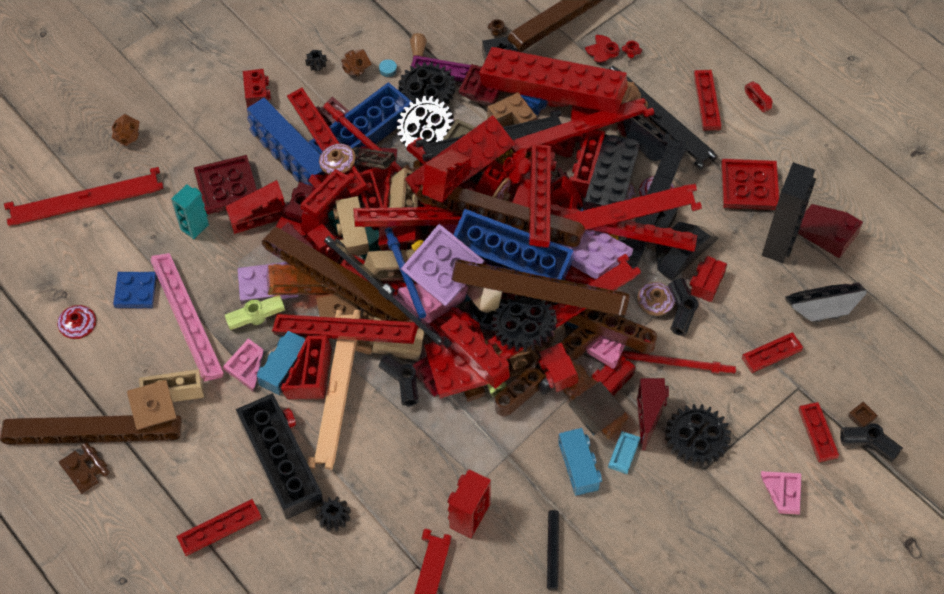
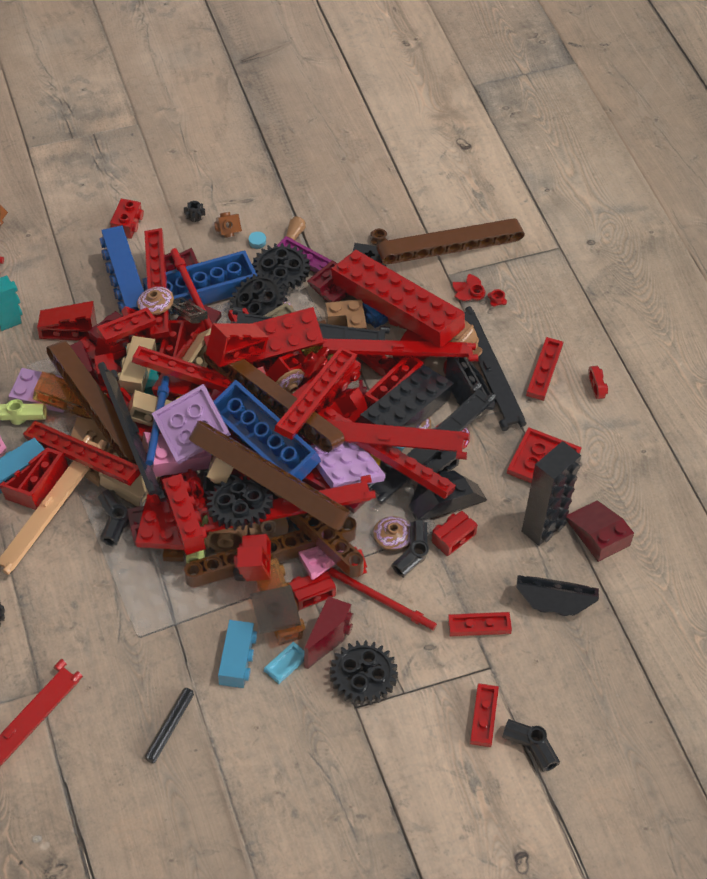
camera: 20 degrees right, 5 degrees down
(224, 182) = (53, 289): dark red plate -> none
(469, 503) = (108, 649): red brick -> none
(784, 490) = (420, 757): bright pink wing -> none
(862, 415) = (537, 715): reddish brown plate -> none

